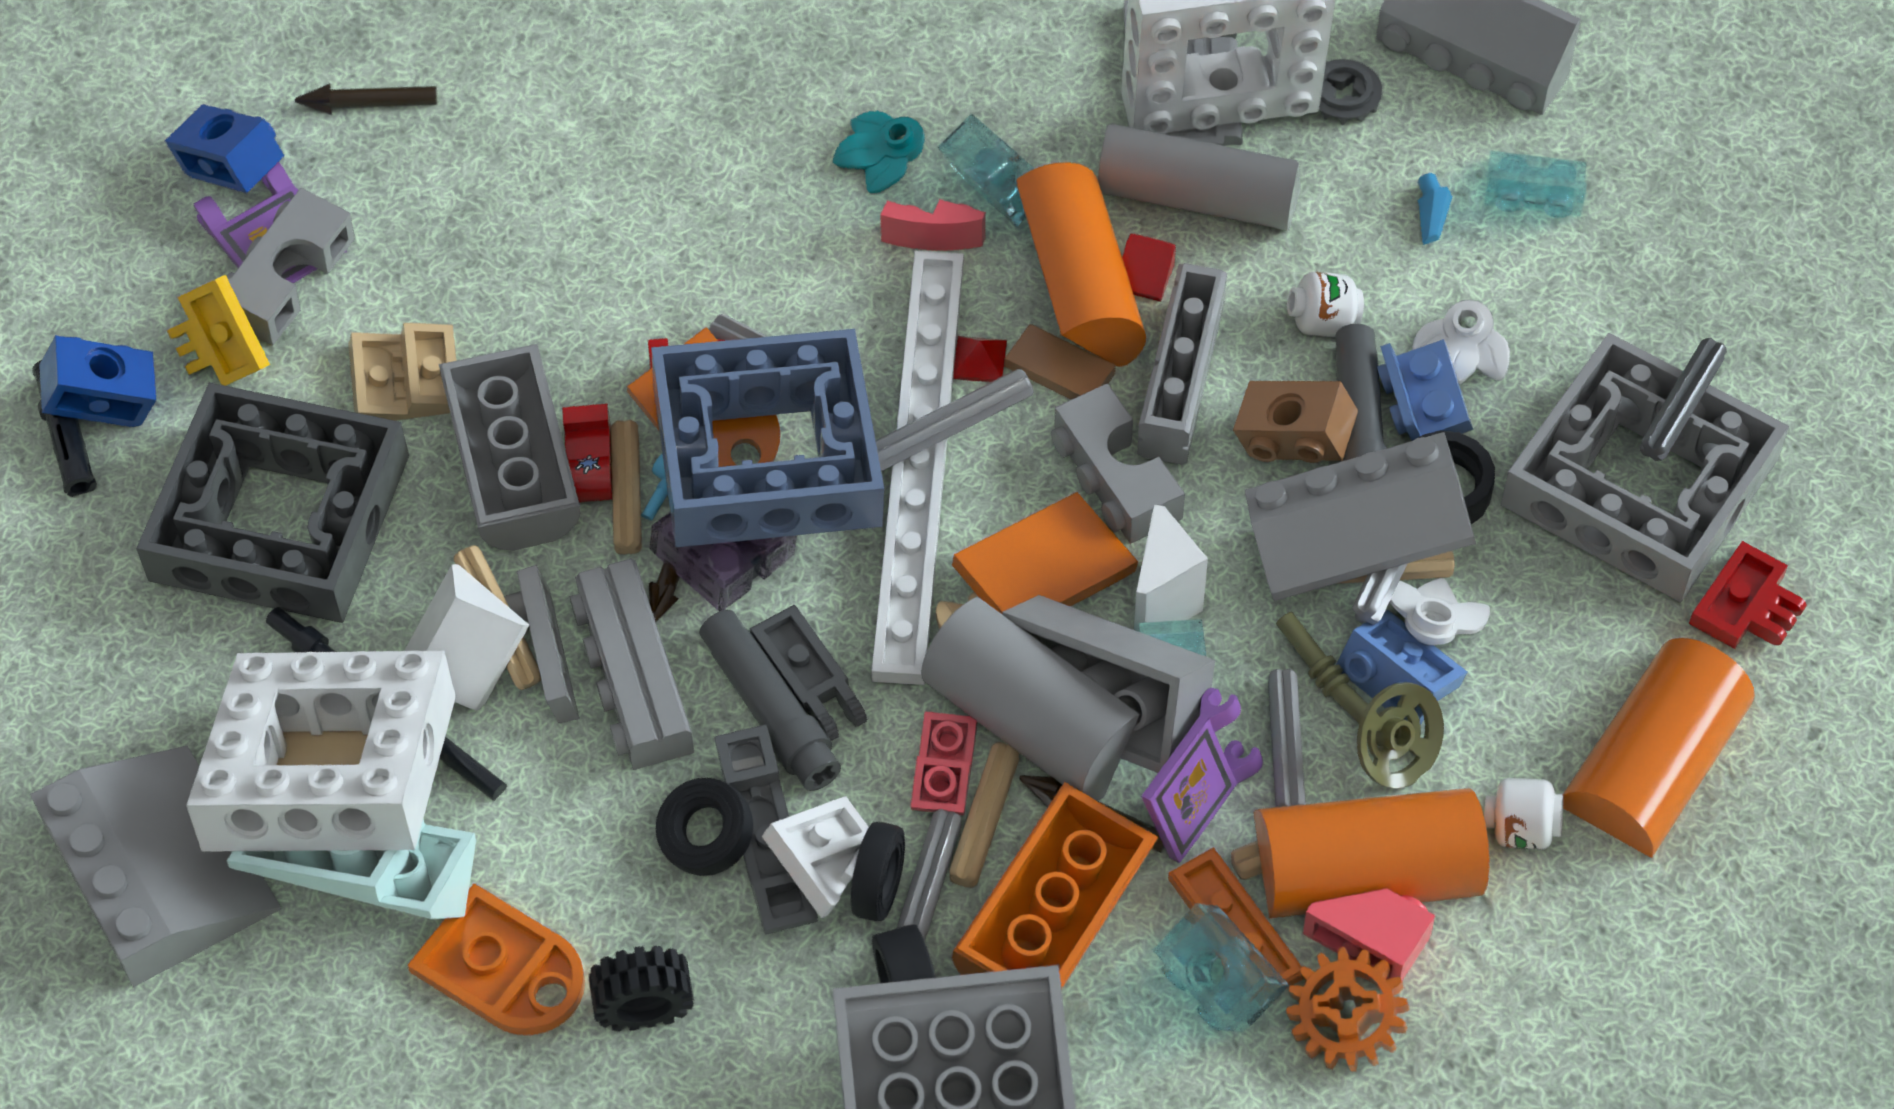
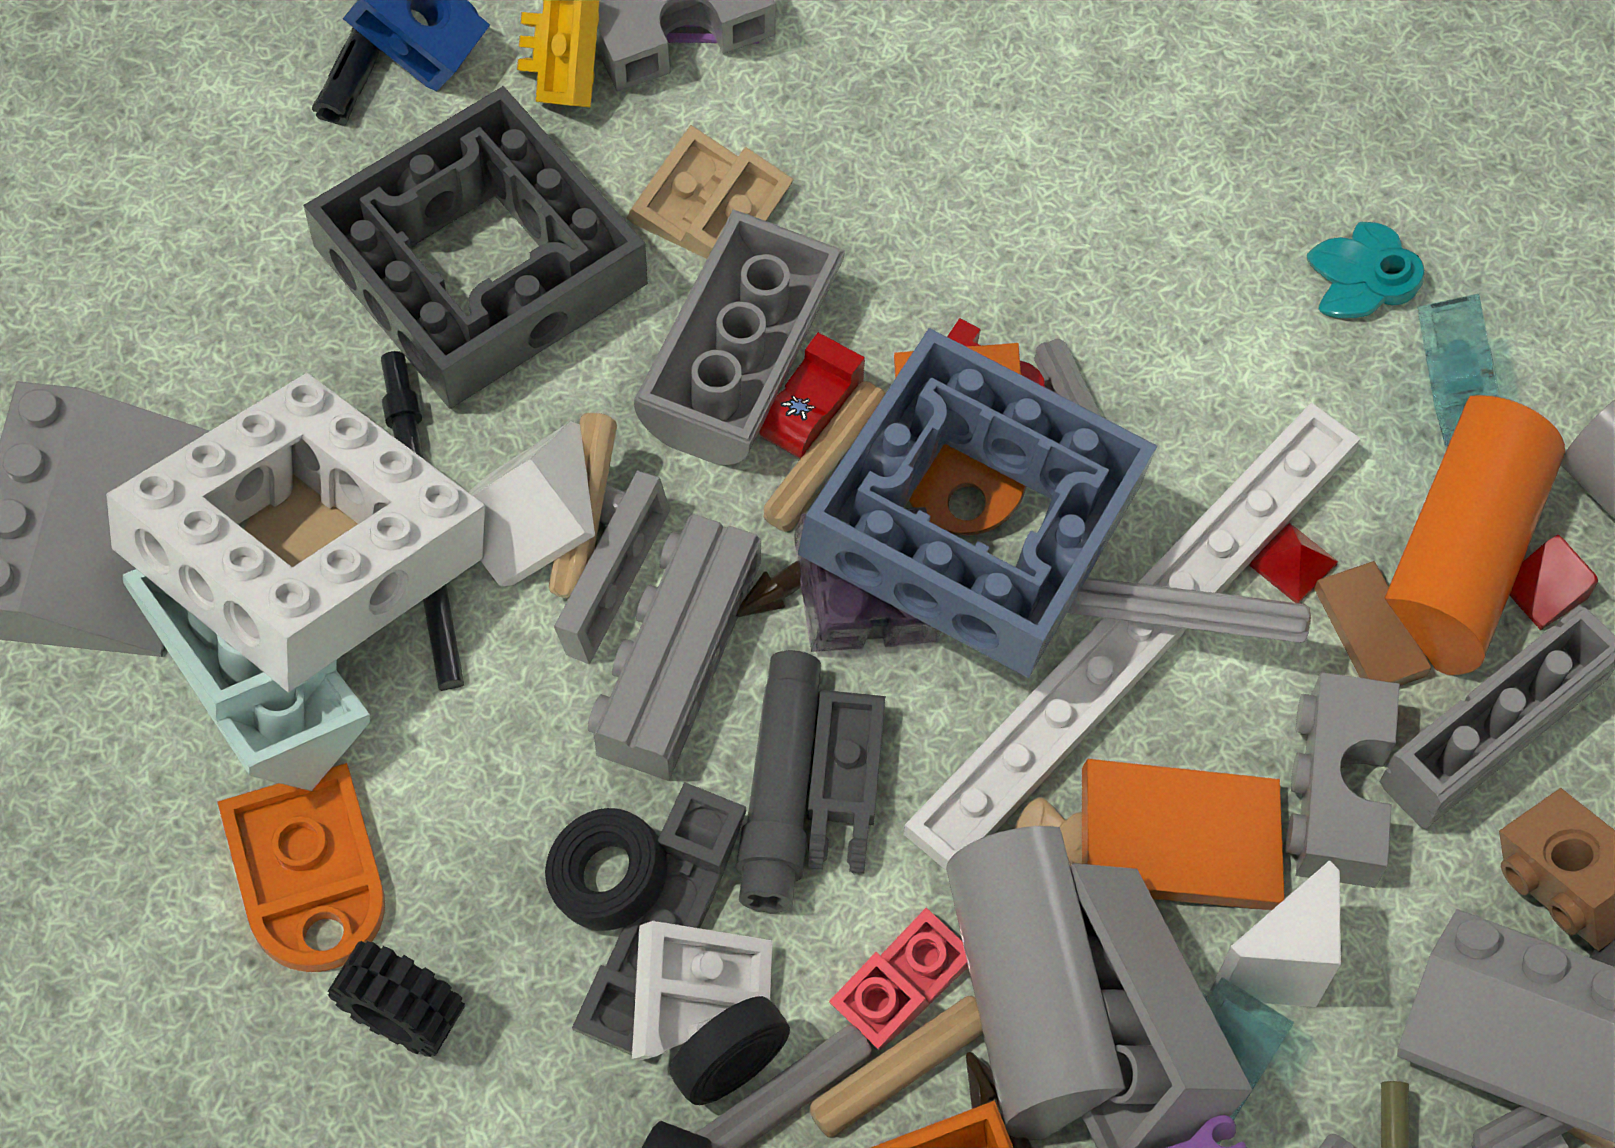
camera: 35 degrees right, 5 degrees up
(947, 228) = (1362, 399): coral slope -> none

